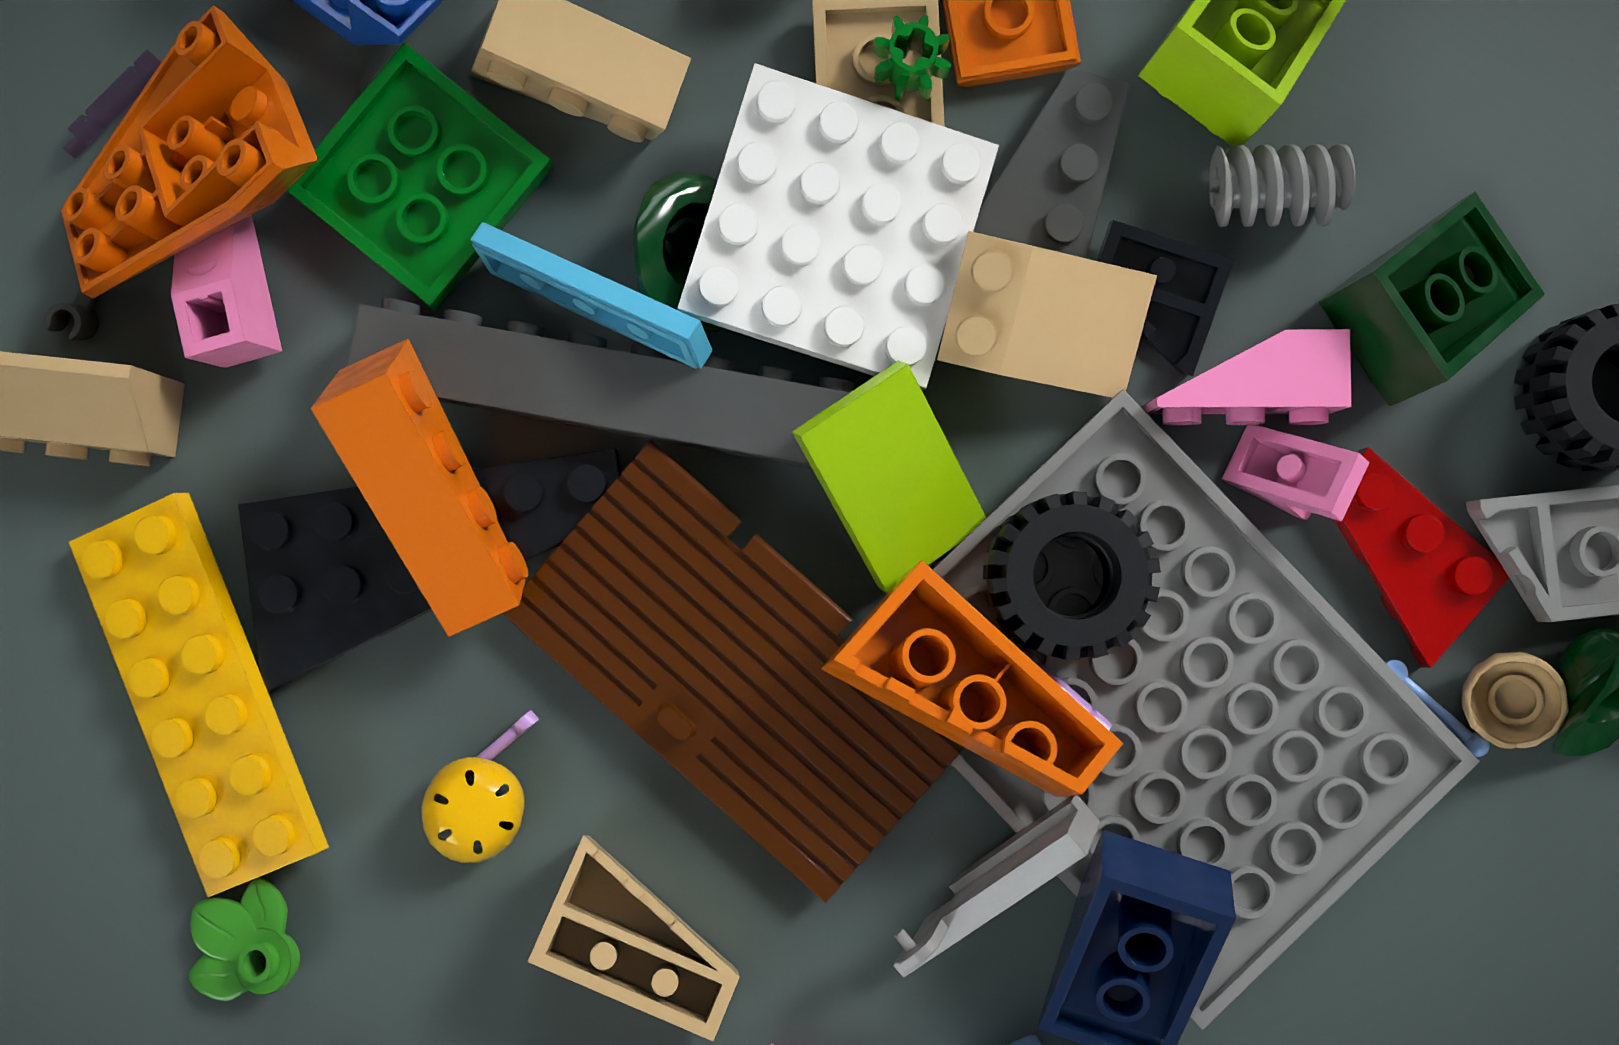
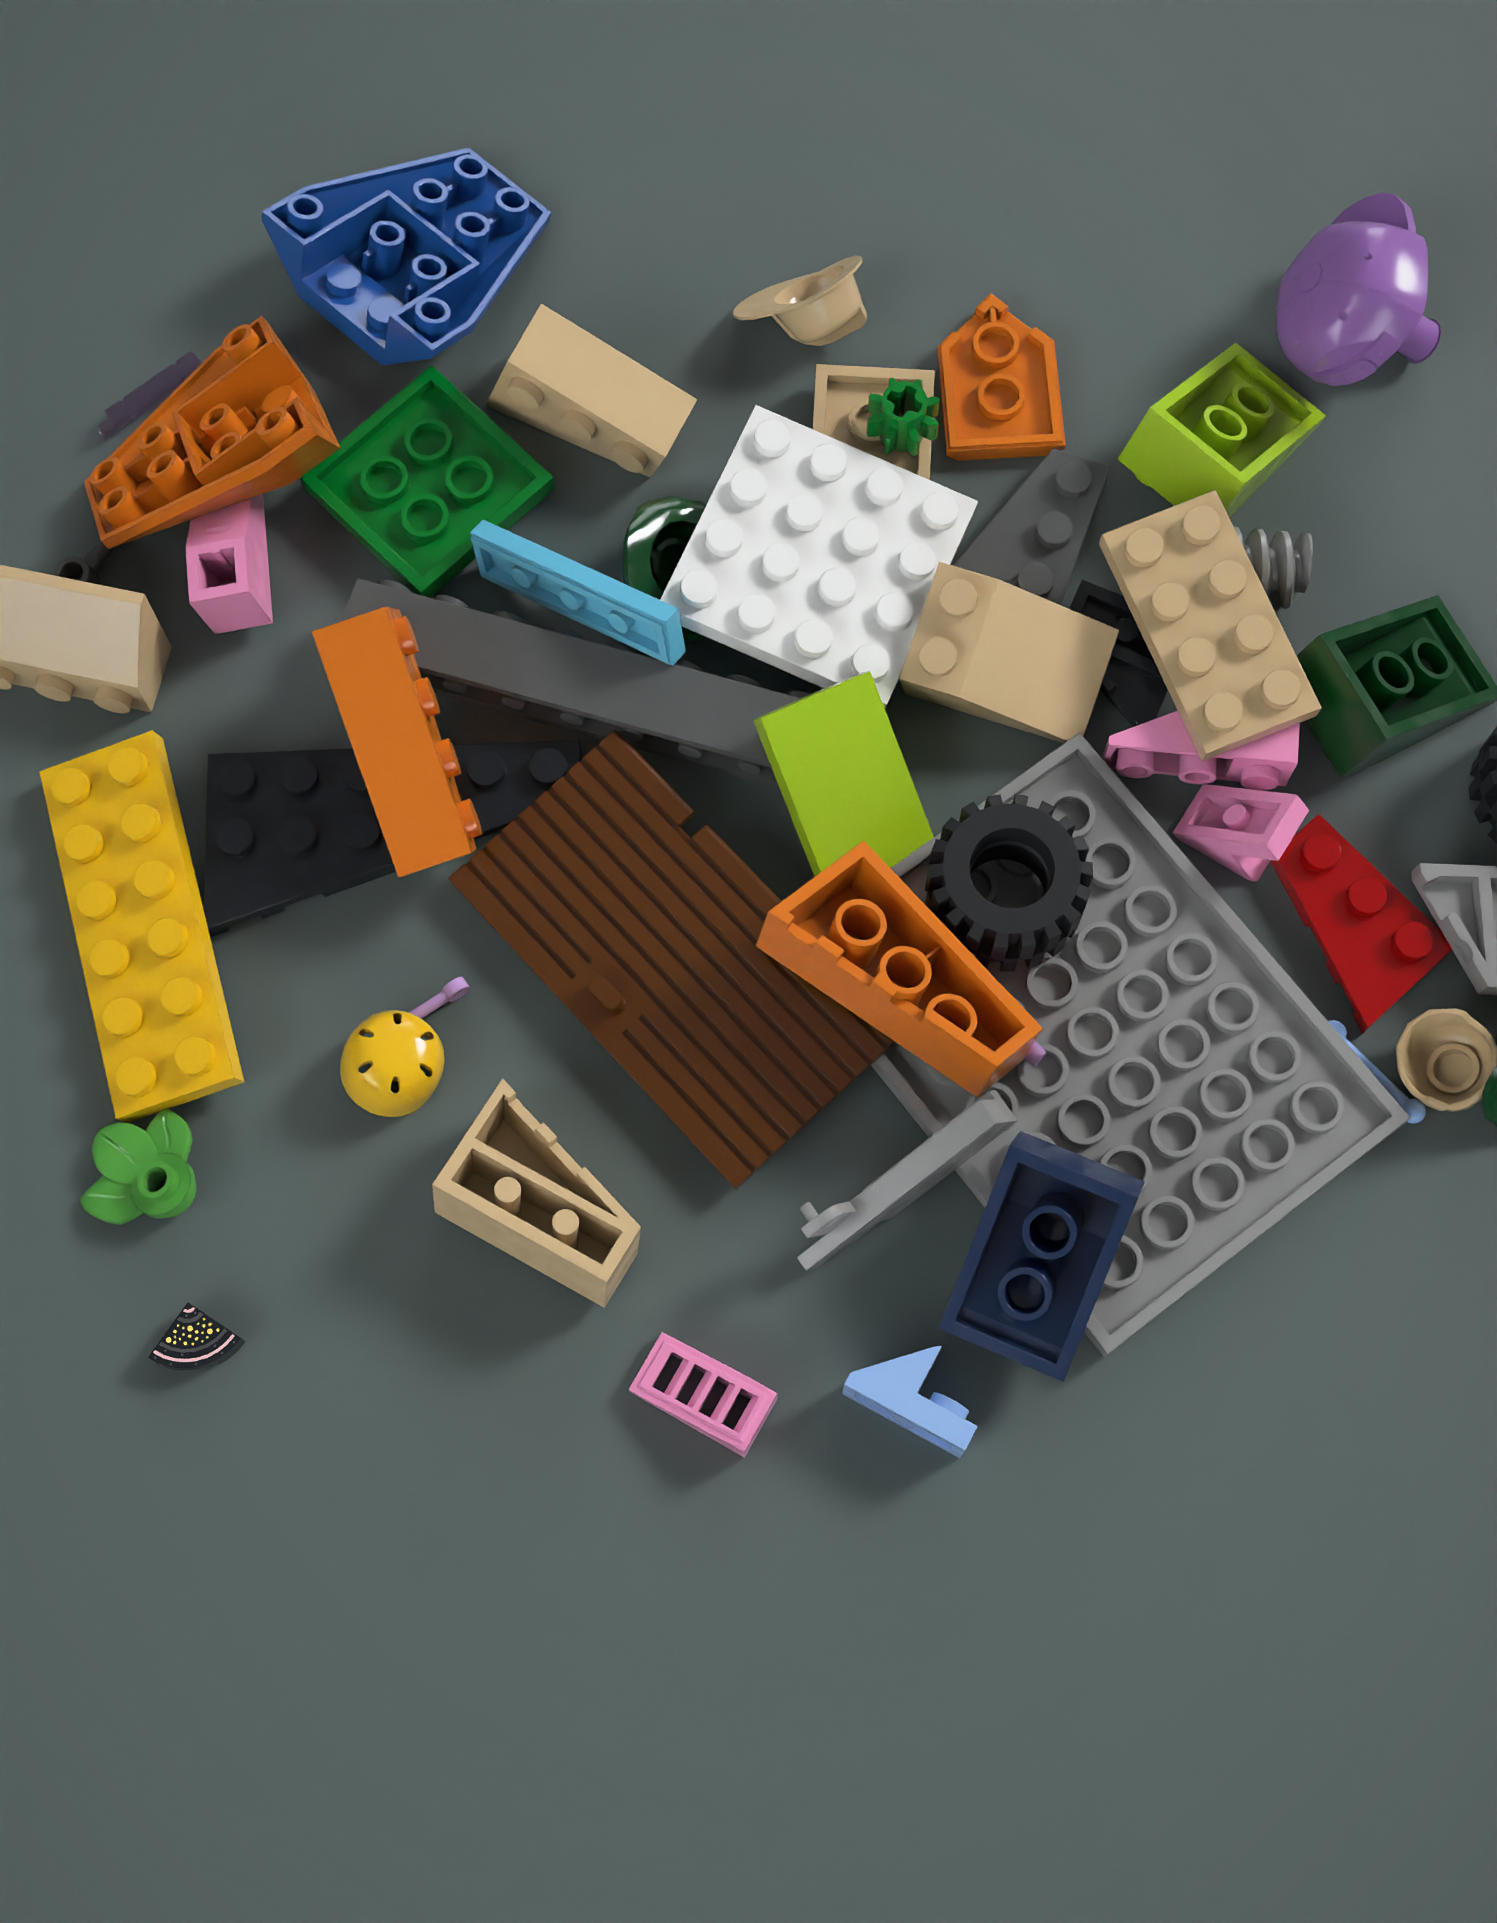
camera: 10 degrees right, 15 degrees down
(1254, 268) = (1209, 625): none -> tan plate

